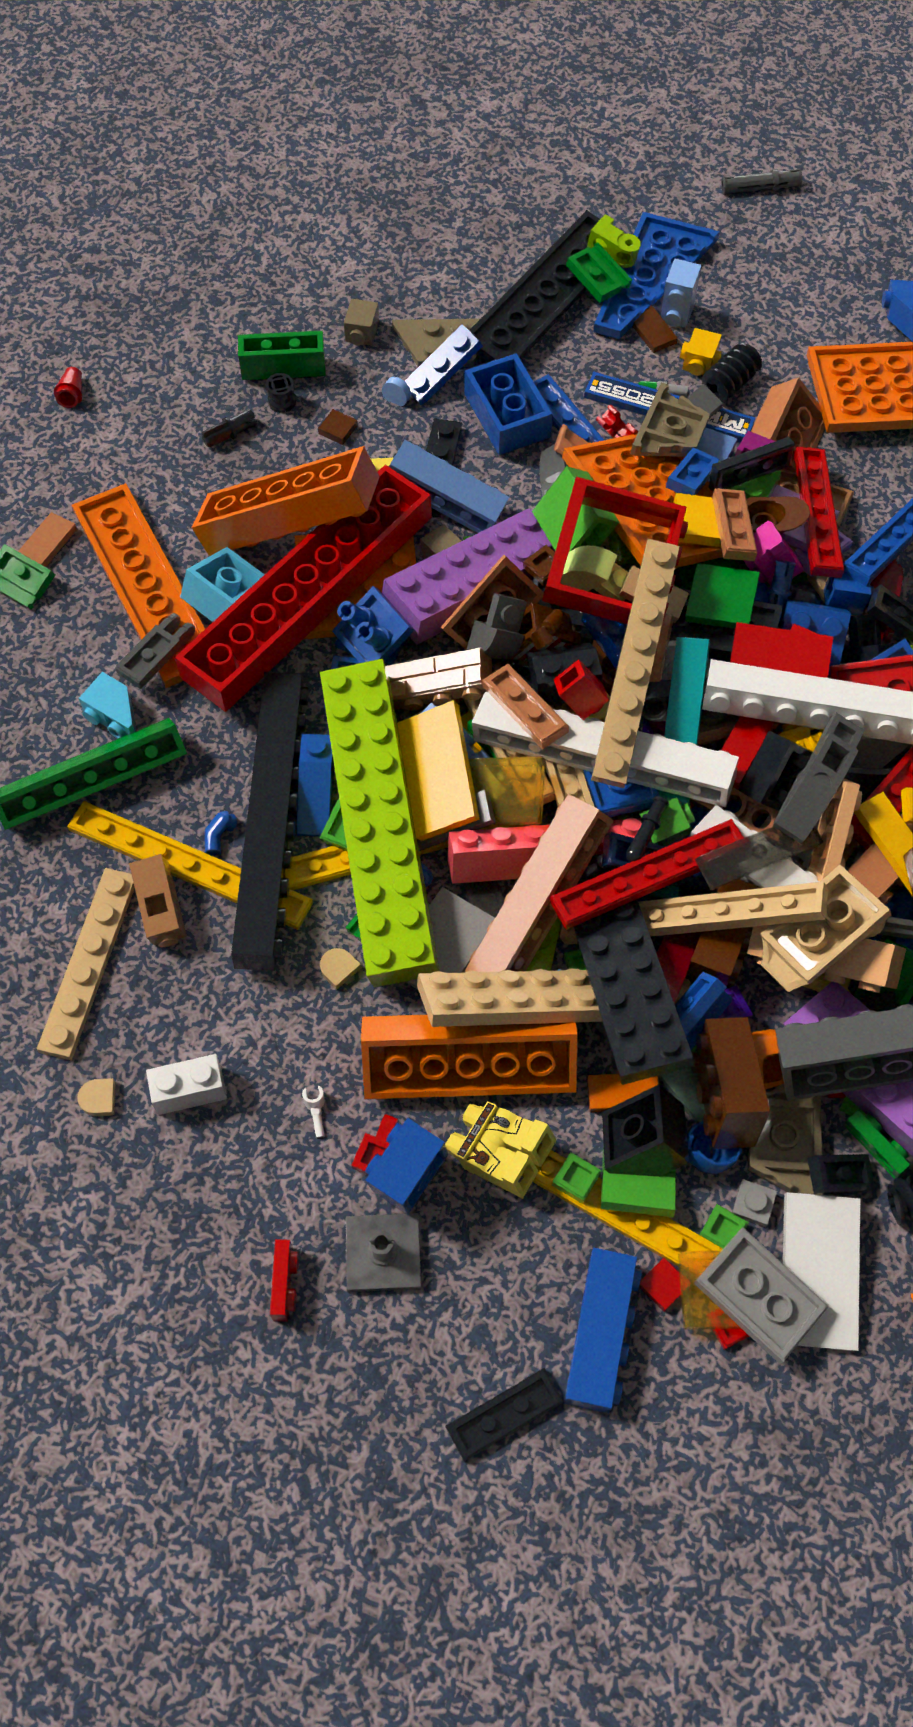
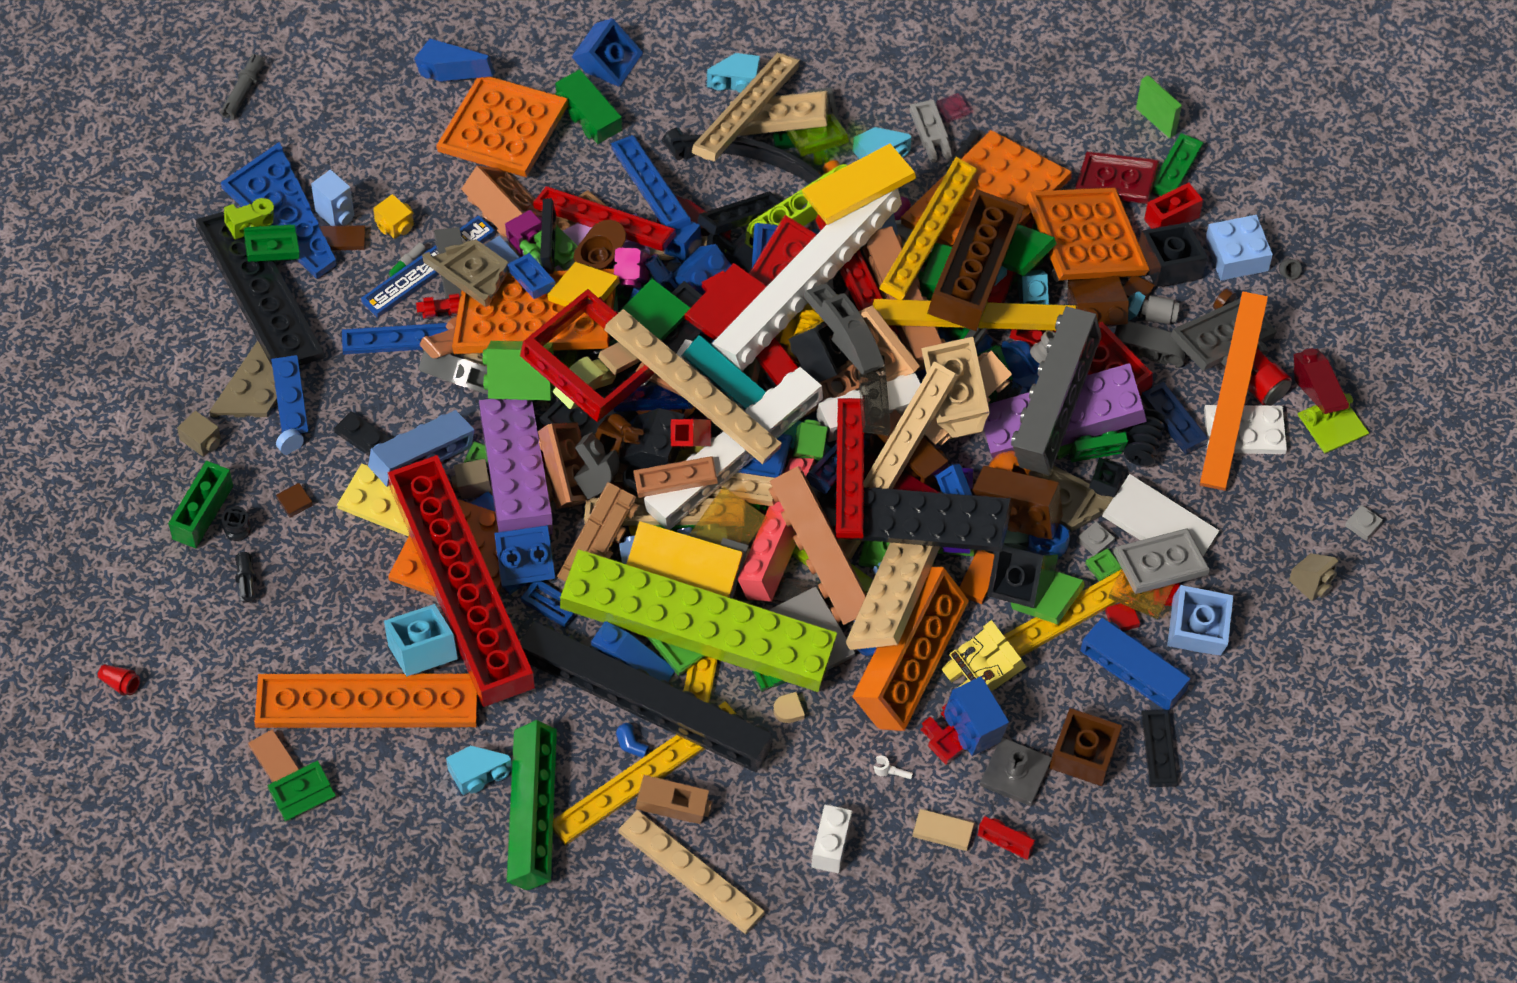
camera: 65 degrees left, 5 degrees down
(97, 1097) = (805, 906): tan tile -> none
(154, 651) = (449, 714): dark grey hinge -> none
(264, 1204) = (943, 829): none -> tan tile
(287, 501) = (381, 556): orange brick -> none
(448, 1319) = (1085, 747): none -> reddish brown brick
(508, 404) = (360, 369): blue brick -> none
(539, 564) = (546, 412): reddish brown tile -> none
(576, 1177) = (1027, 629): bright green tile -> none
(650, 823) = (812, 446): black piece -> none
(706, 1384) = (1200, 620): none -> light blue brick
(732, 371) = (428, 207): black piece -> none
(734, 524) = (603, 272): nougat tile -> none
(862, 1508) = (1314, 575): none -> dark tan slope

